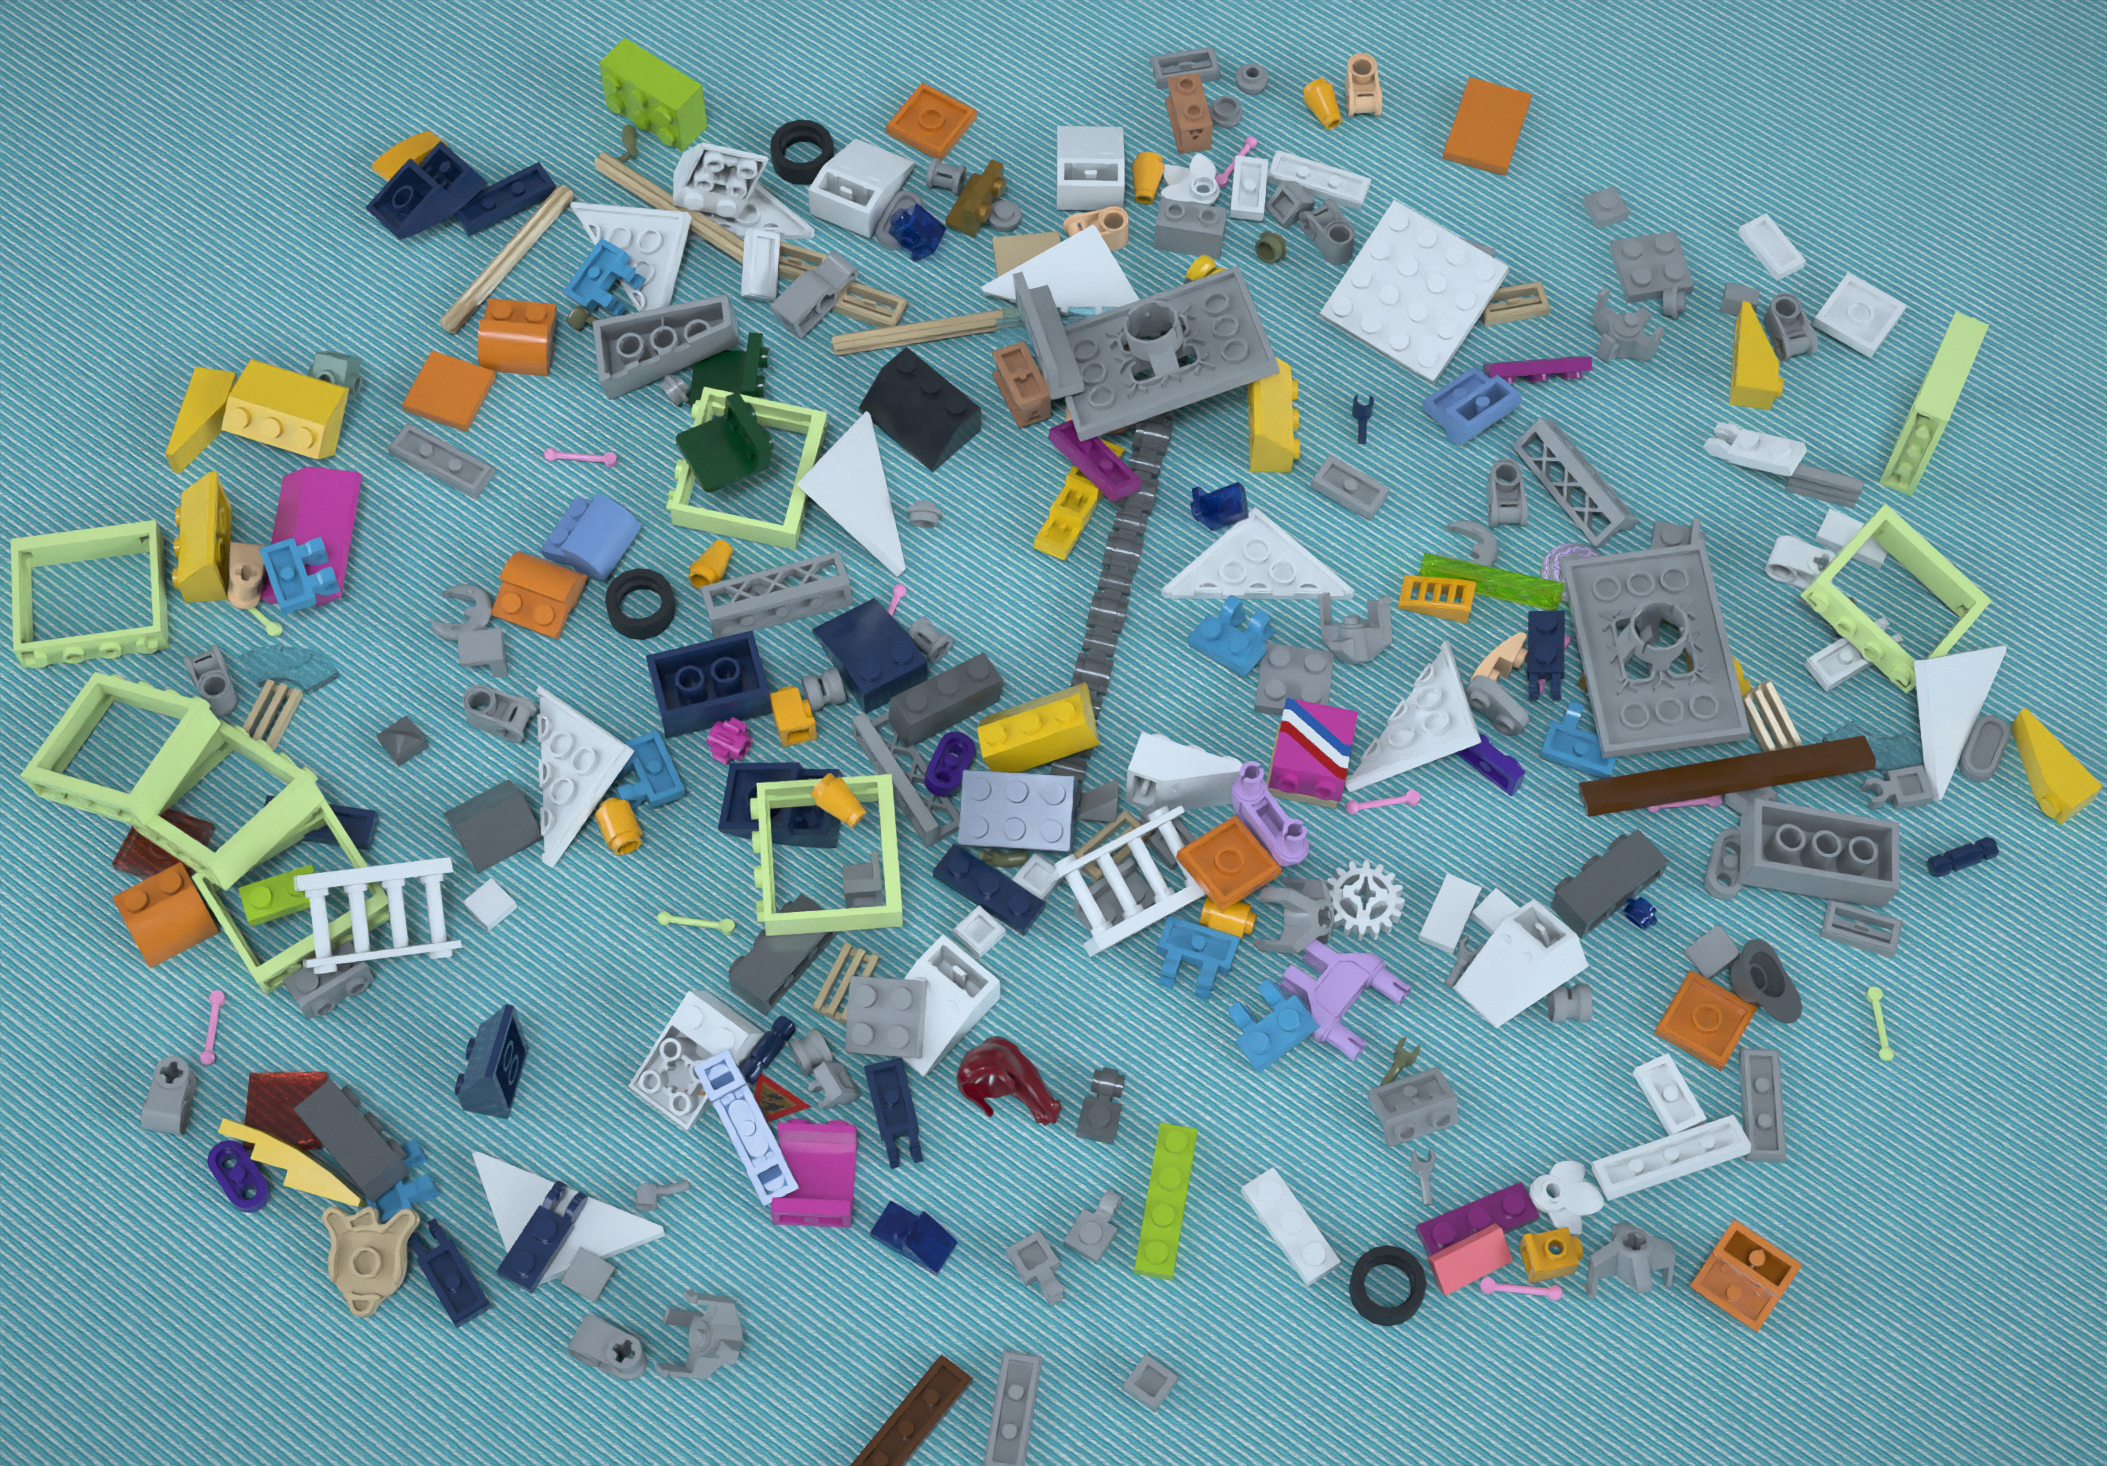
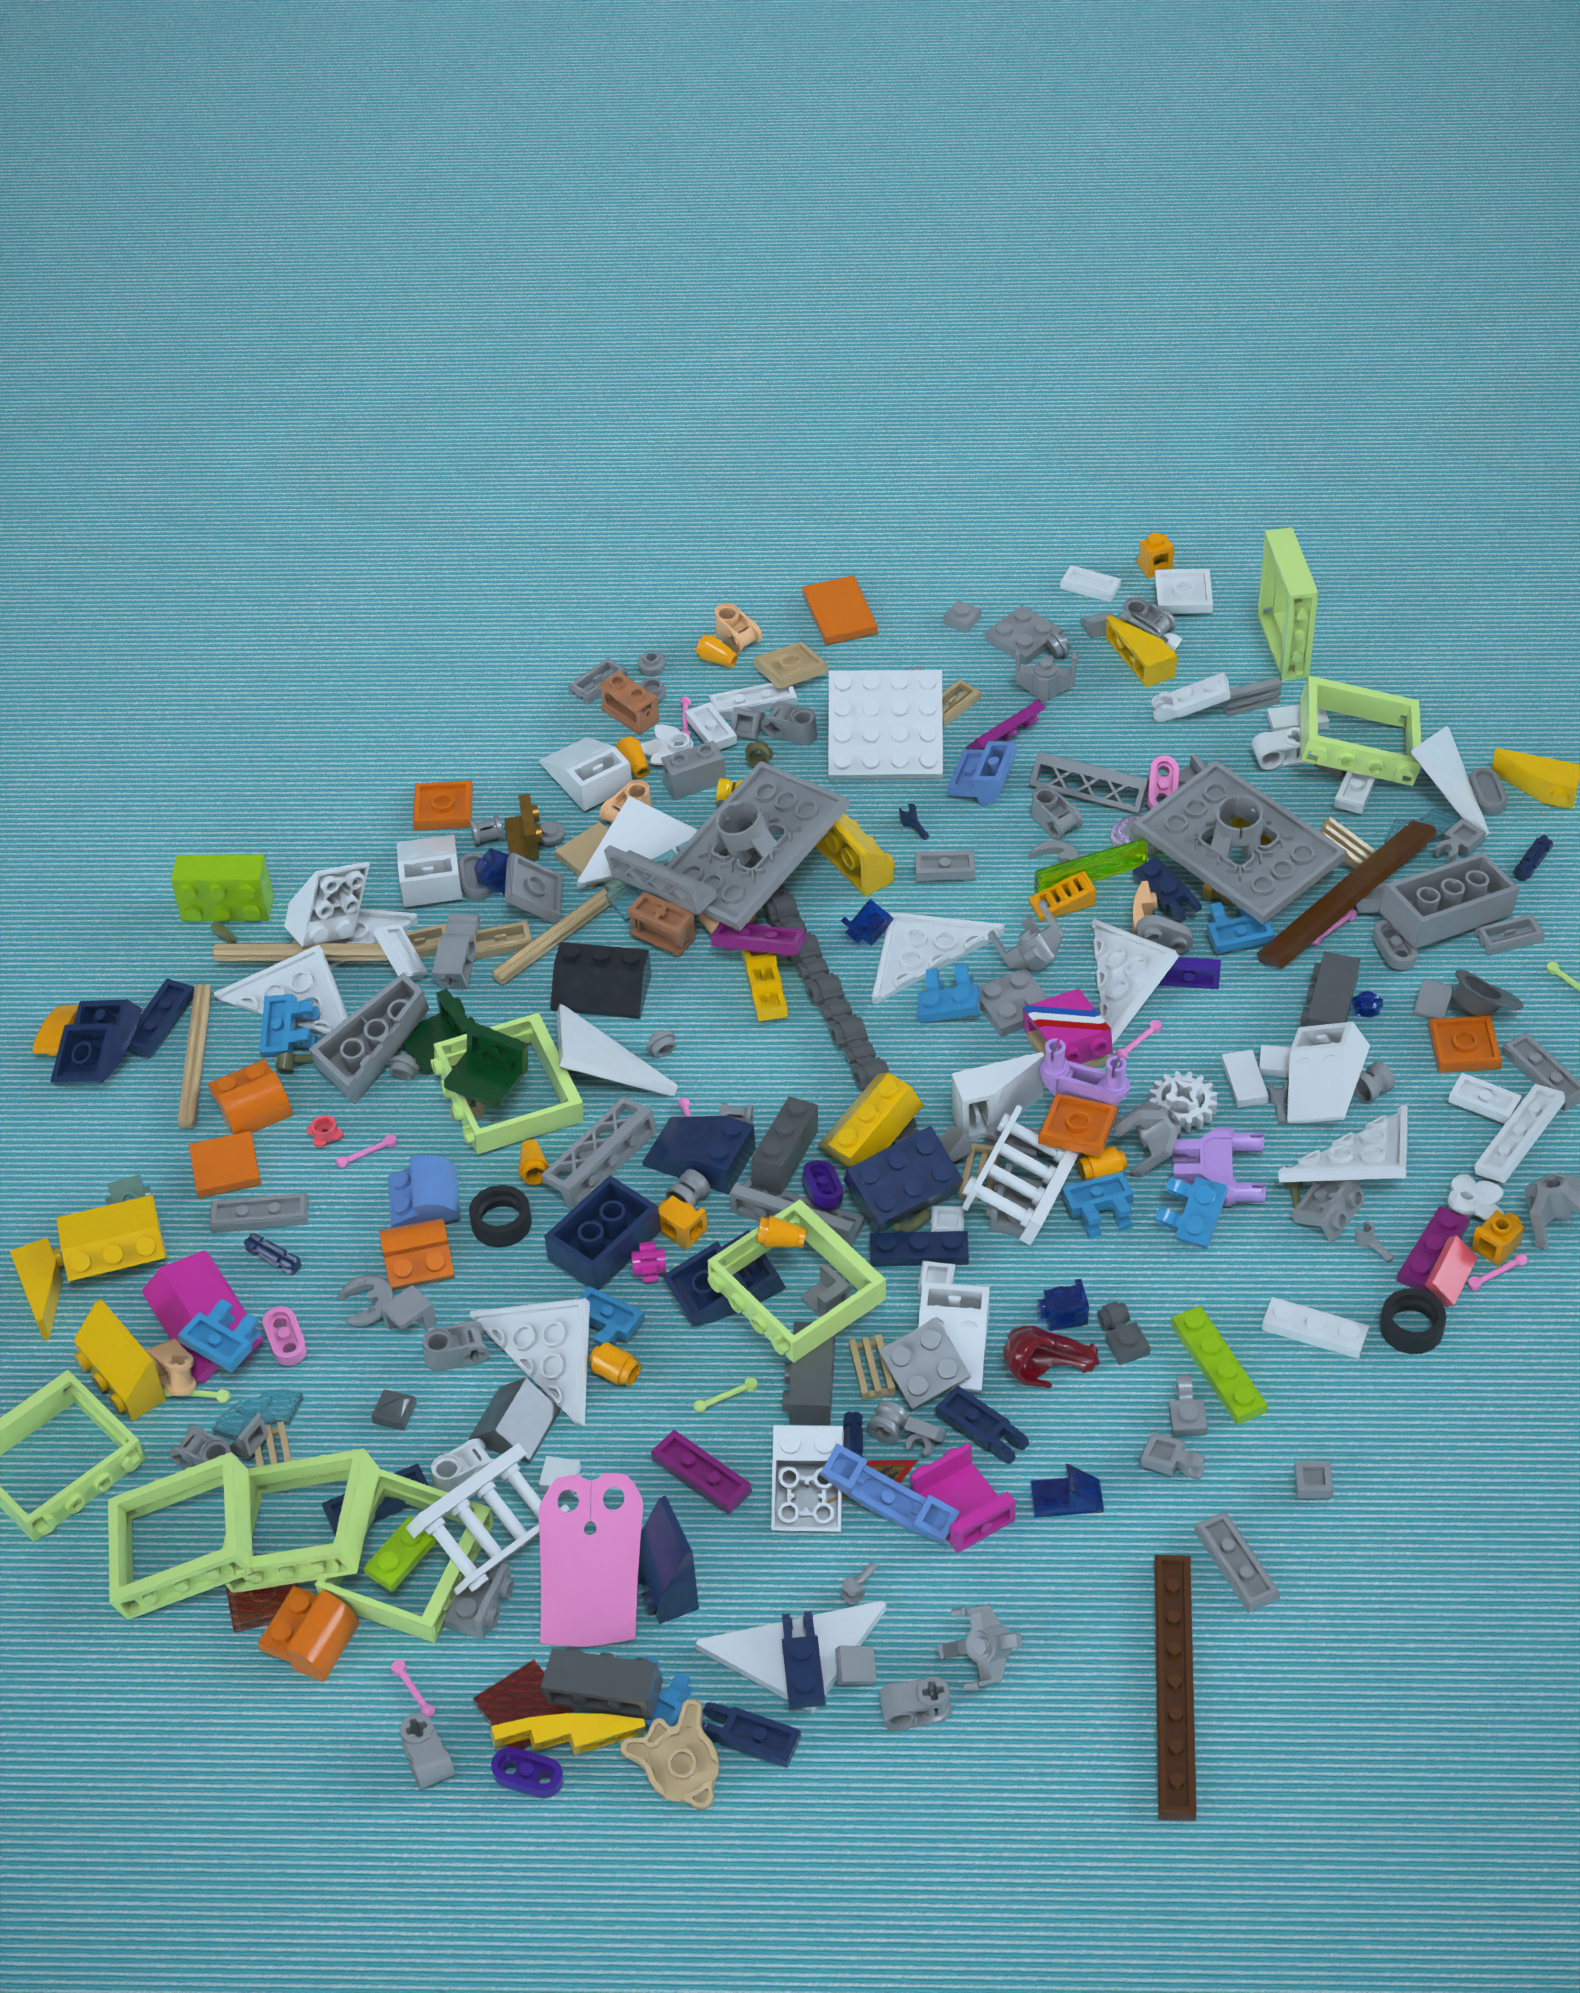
camera: 30 degrees left, 15 degrees down
(256, 690) = (250, 1437): none -> light grey slope
(364, 606) = (285, 1338): none -> bright pink plate
(415, 840) = (459, 1465): none -> white piece
(420, 512) = (272, 1253): none -> dark blue axle
(423, 1022) = (589, 1578): none -> bright pink piece
(558, 404) = (324, 1130): none -> coral plate
(610, 986) = (701, 1471): none -> magenta plate
(796, 132) = (374, 855): black tyre -> none
(935, 269) = (533, 888): none -> light grey tile
(1067, 1043) = (1064, 1306): none -> clear blue brick
(1383, 163) = (790, 665): none -> tan tile
(1484, 1079) = (1370, 1154): none -> white tile
(1638, 531) = (1159, 785): none -> bright pink plate
(1789, 366) = (1171, 639): none -> light grey hinge
(1867, 247) = (1153, 549): none -> light orange brick

